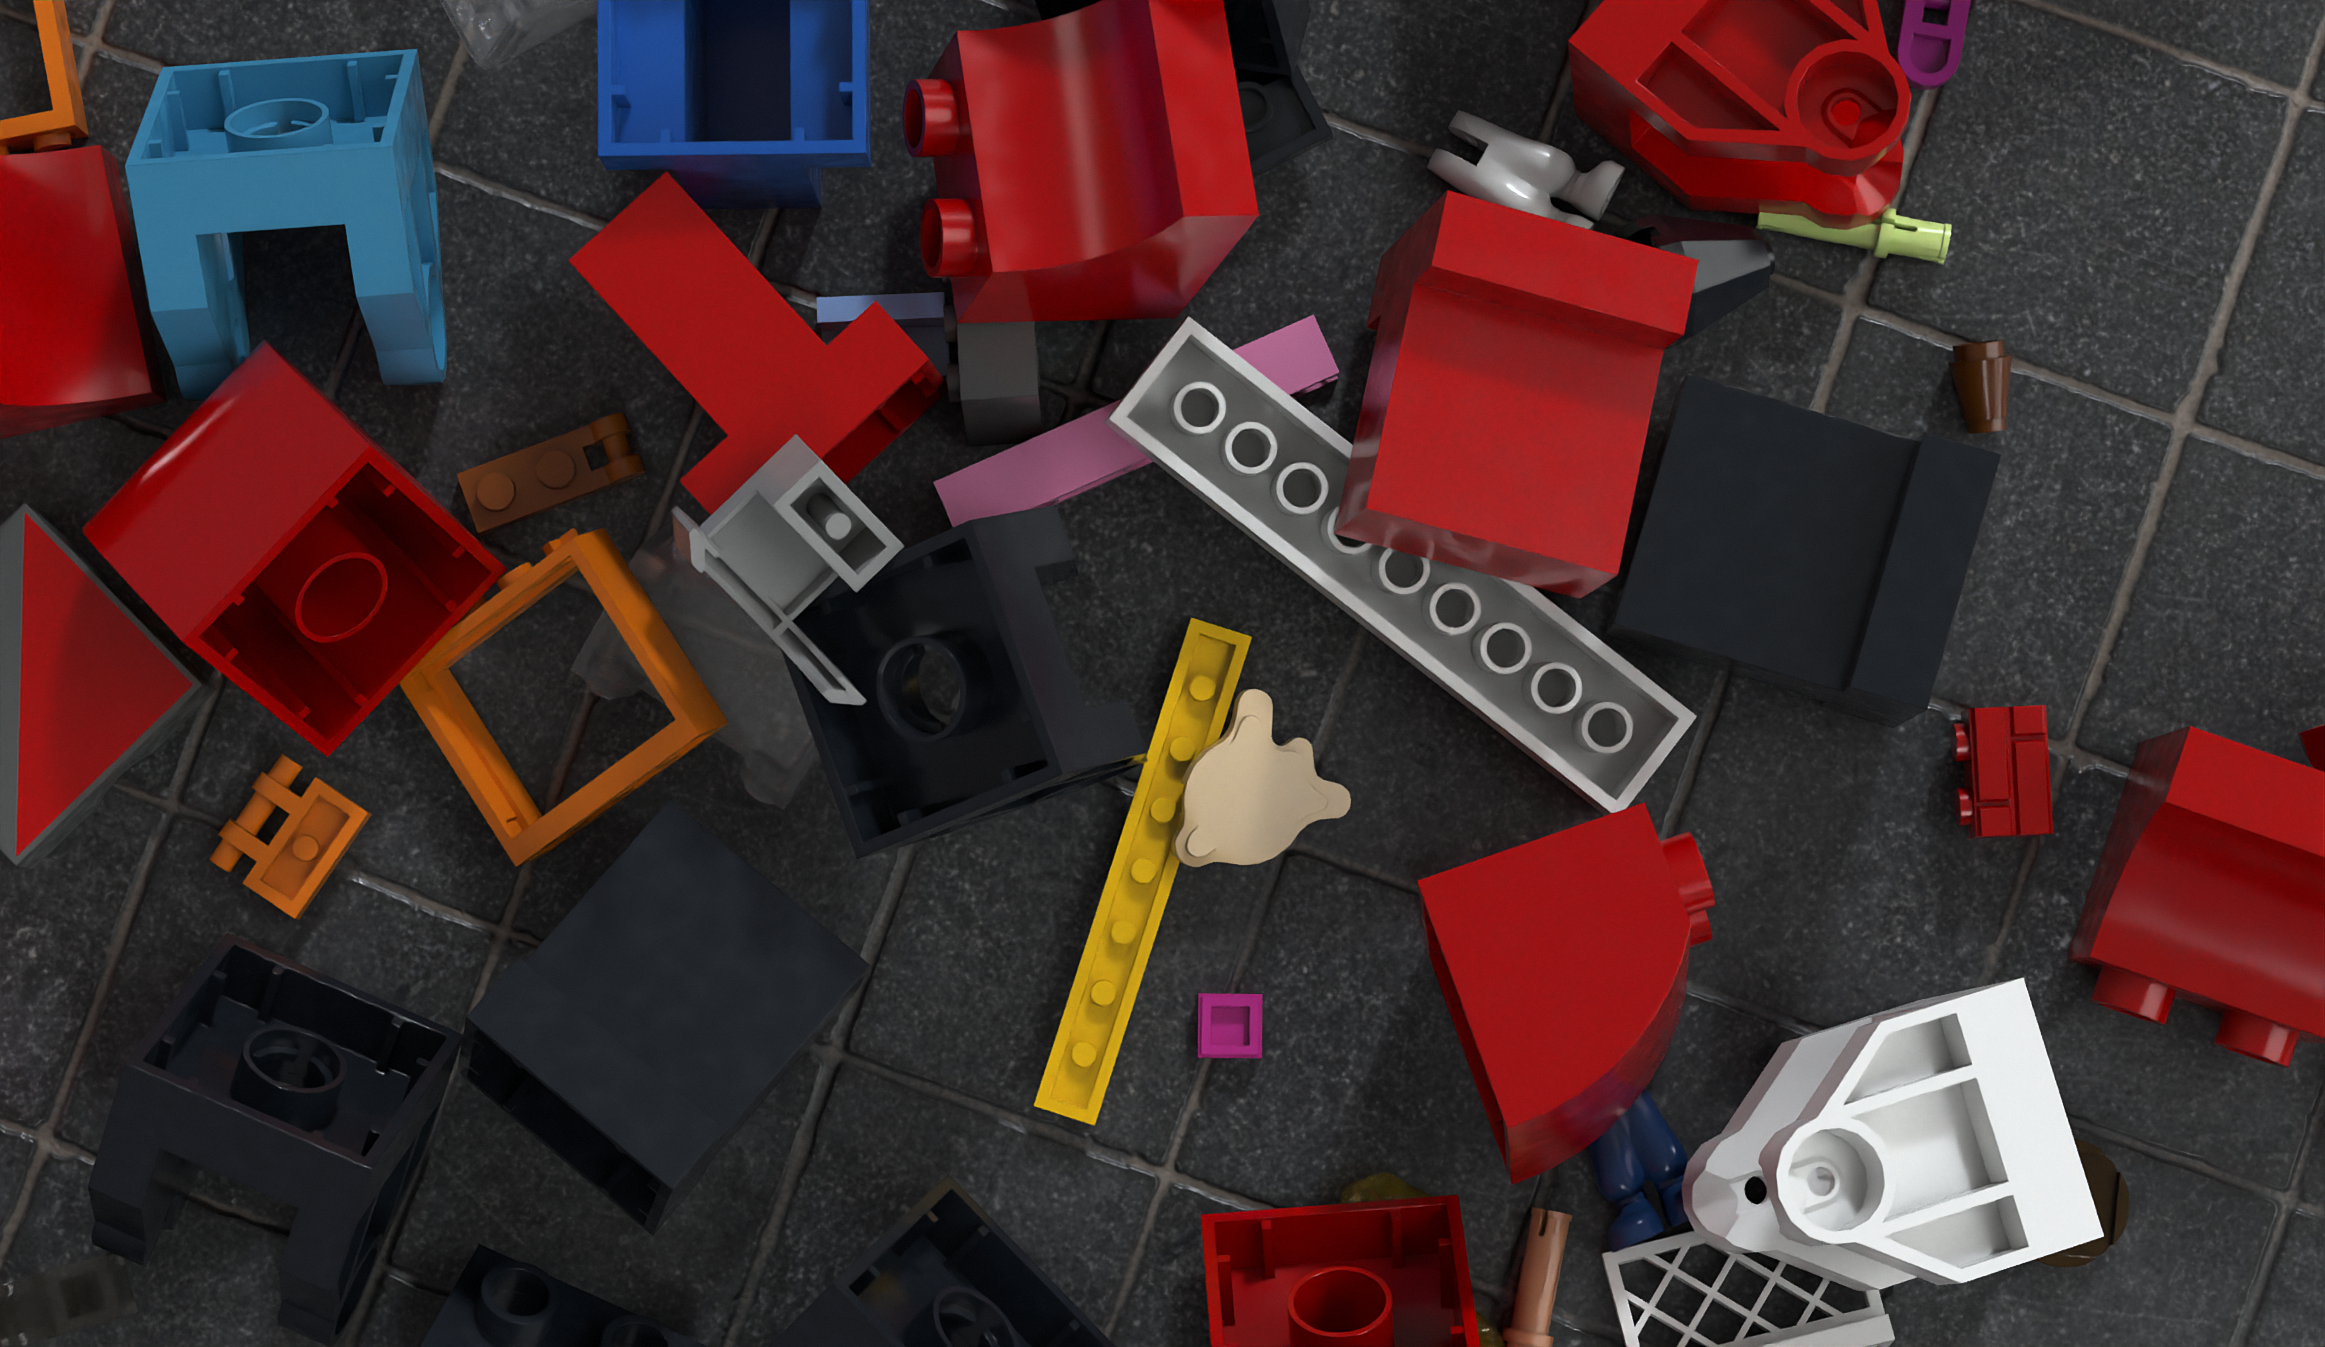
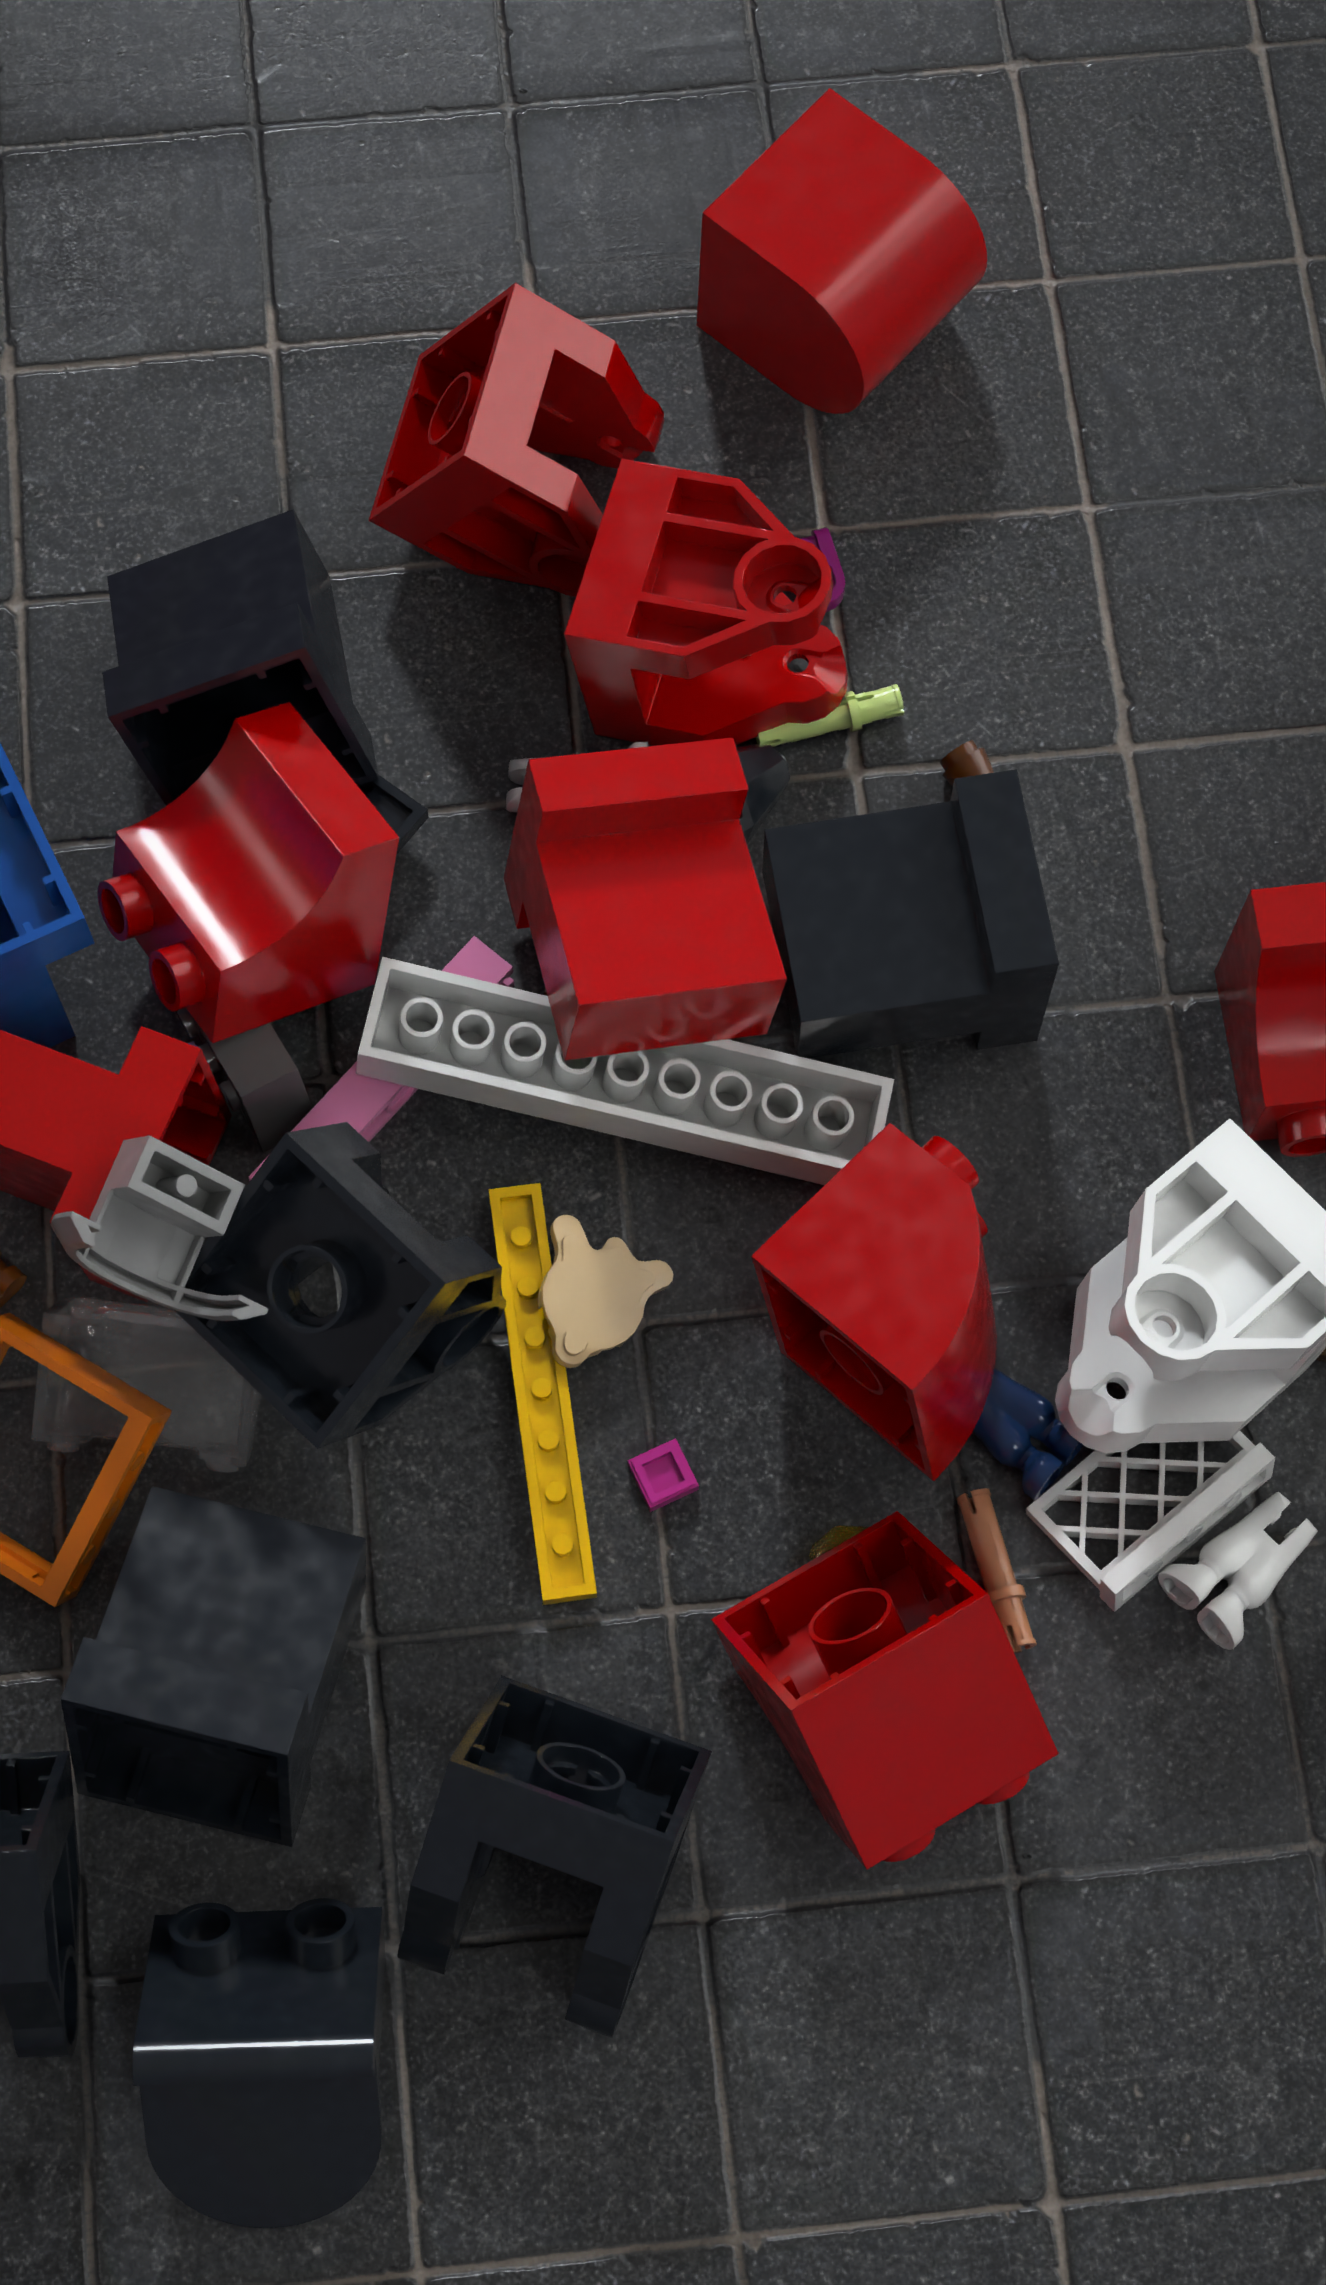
camera: 30 degrees left, 15 degrees down
(2003, 772) = (1132, 1028): red brick -> none

